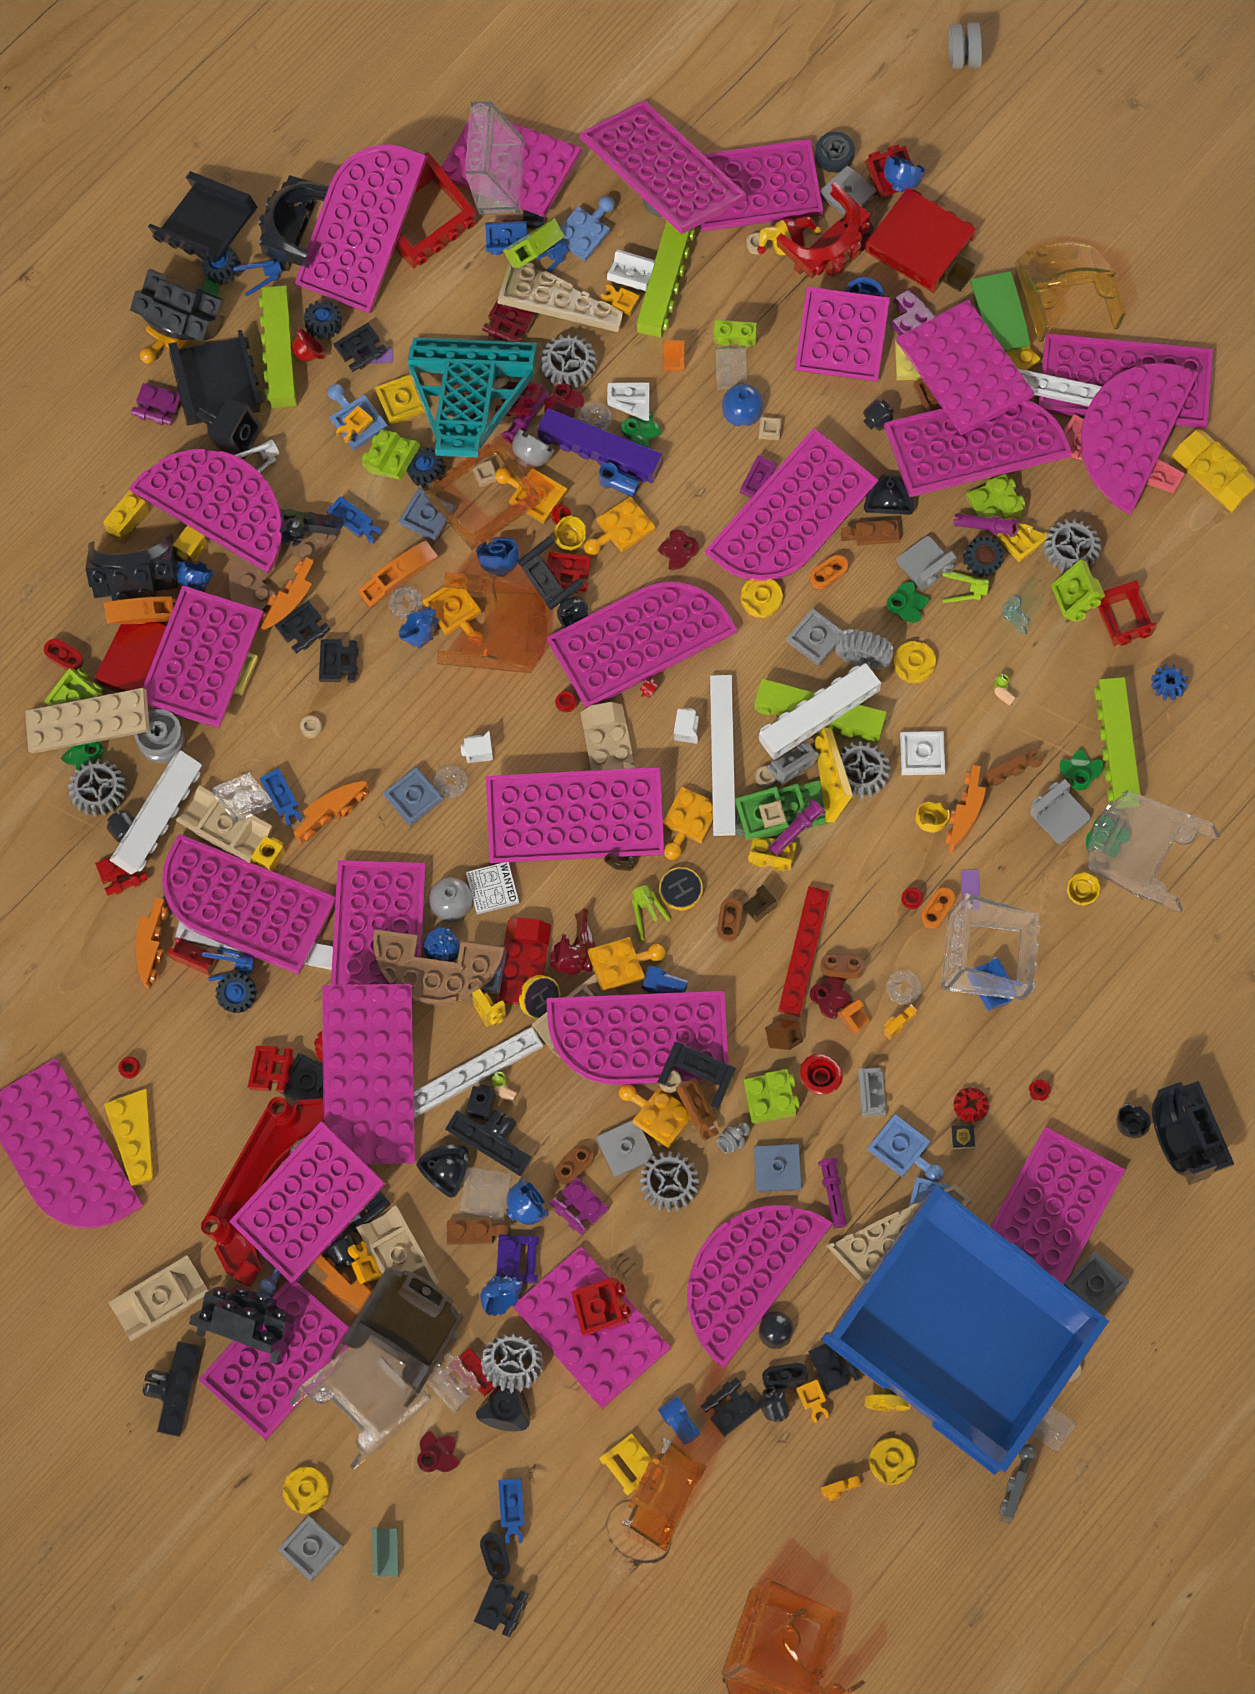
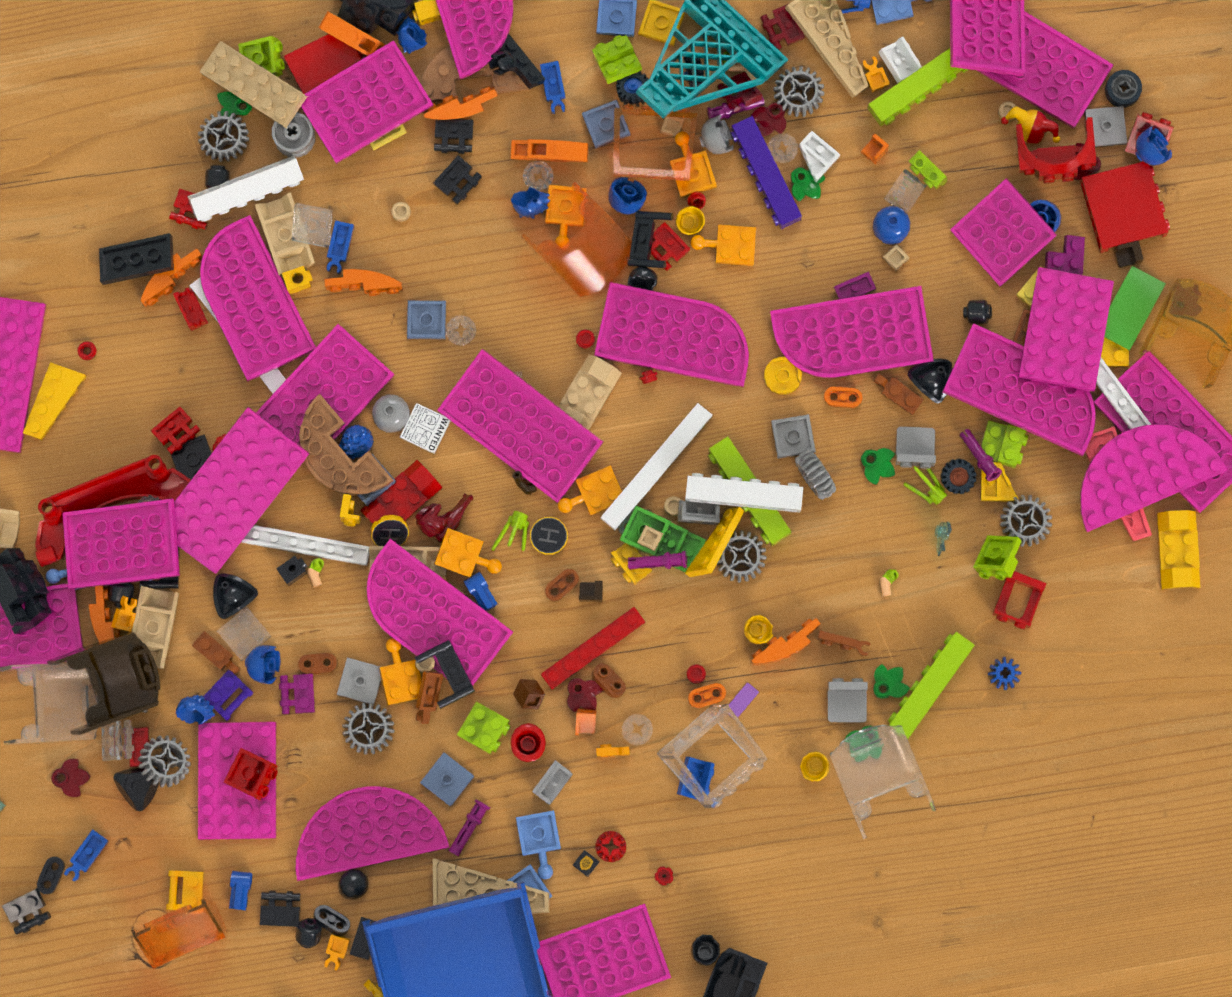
camera: 40 degrees right, 10 degrees up
(64, 656) = (279, 21): red plate -> none
(108, 950) = (136, 259): none -> black plate
(236, 993) = (196, 359): black wheel -> none
(243, 961) = (218, 341): blue plant -> none
(356, 422) = (613, 16): light orange plate -> none
(477, 748) = (497, 322): white window -> none
(491, 1139) = (278, 600): black plate -> none
(620, 481) = (758, 211): blue piece -> none
(676, 549) = (753, 291): dark red plate -> none
(686, 726) = (650, 424): white window -> none
(732, 1138) = (435, 735): light grey piece -> none
(914, 662) = (845, 510): yellow tile -> none
(922, 753) = (793, 579): white tile -> none

